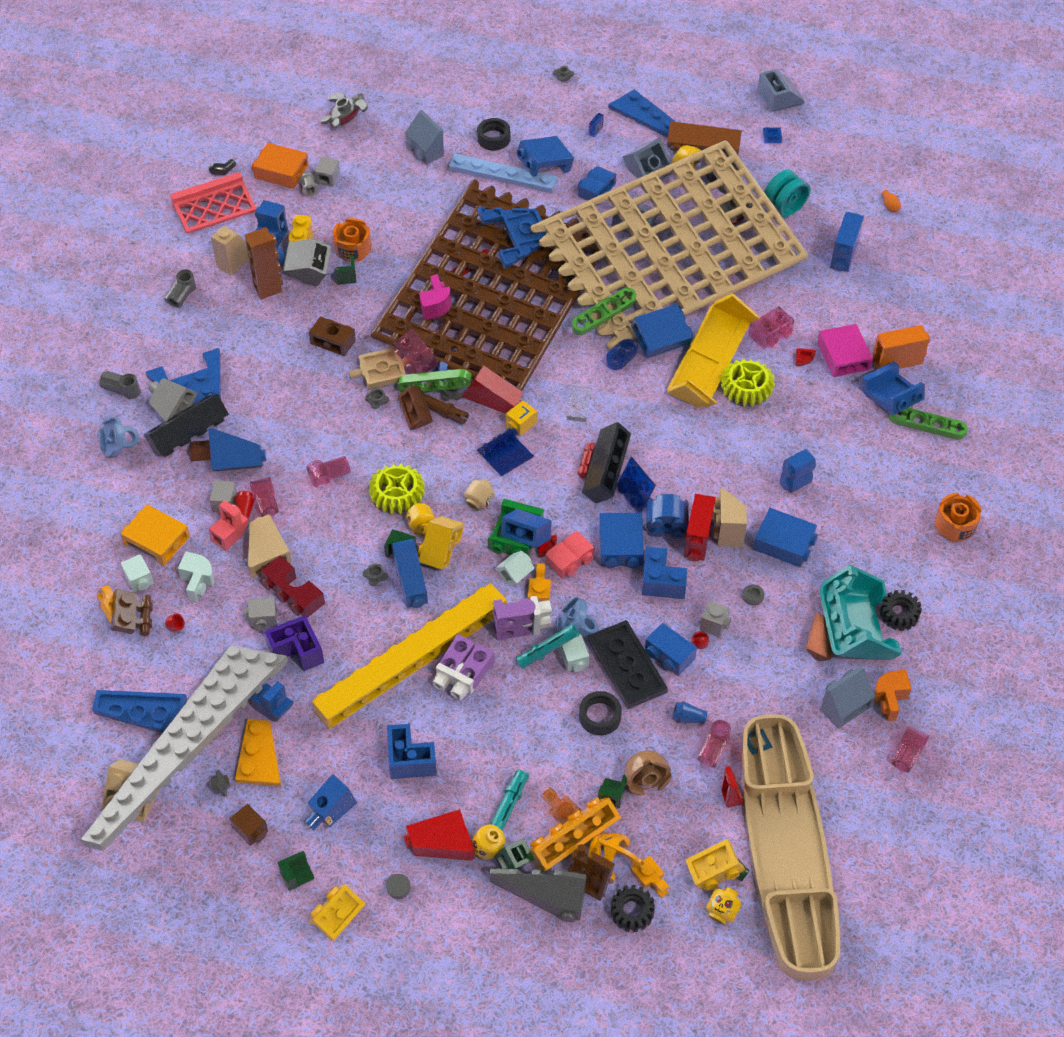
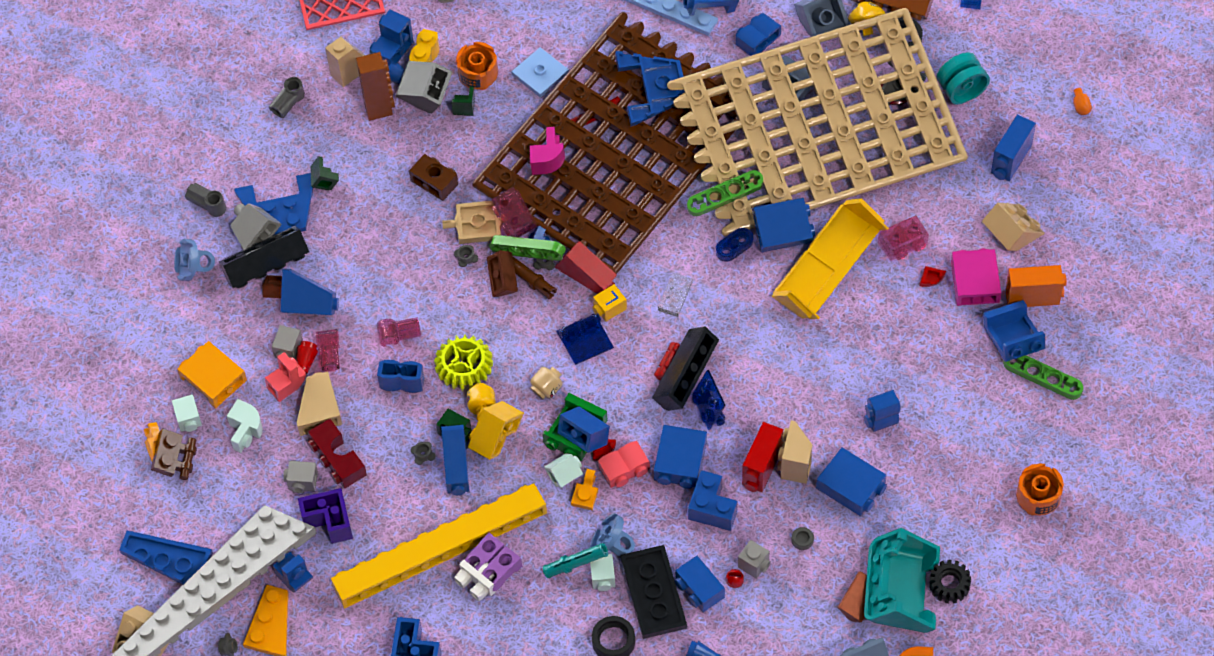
camera: 15 degrees right, 5 degrees up
(175, 622) = (214, 472): red hinge -> none
(228, 350) = (322, 176): none -> dark green panel
(340, 508) = (400, 376): none -> blue brick
(409, 239) = (540, 72): none -> light blue plate
(520, 618) = (556, 525): medium lavender hips -> none
(667, 516) = (732, 438): blue brick -> none
(745, 388) = (852, 306): neon yellow gear -> none
(863, 304) = (1012, 225): none -> tan slope

